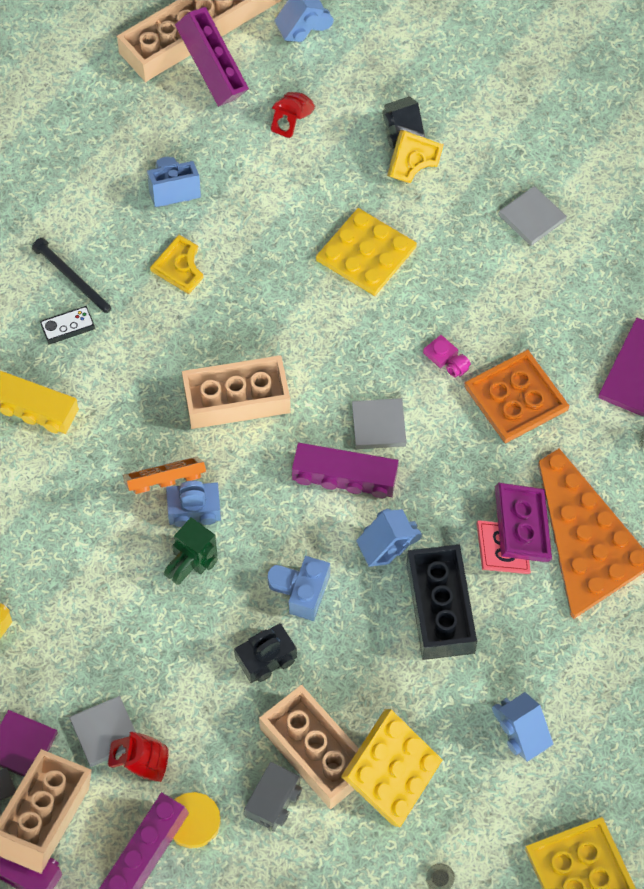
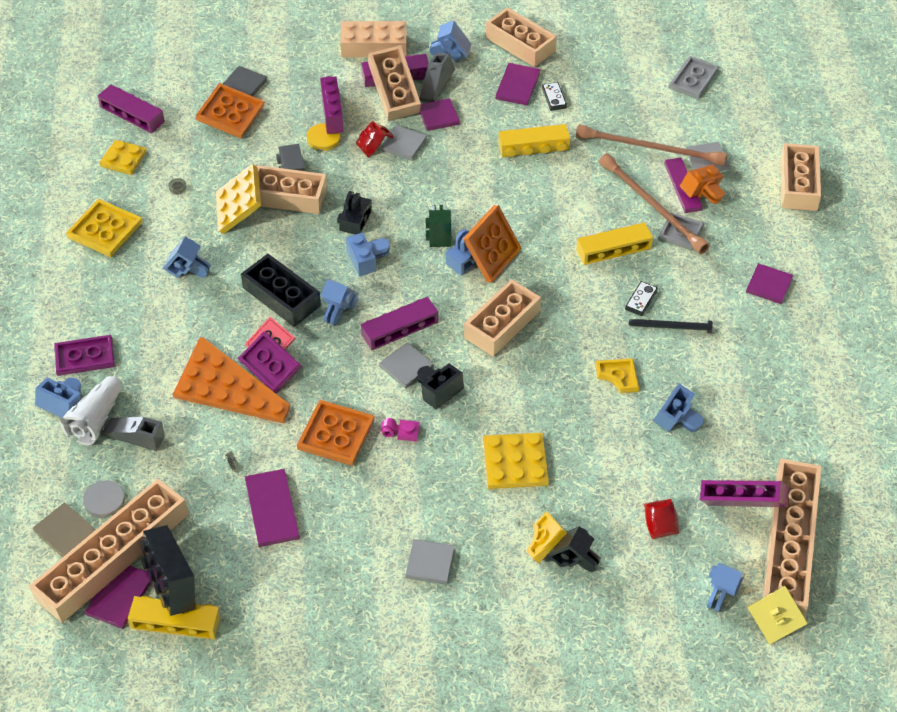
camera: 140 degrees right, 10 degrees down
(371, 363) = (440, 384): none -> black brick

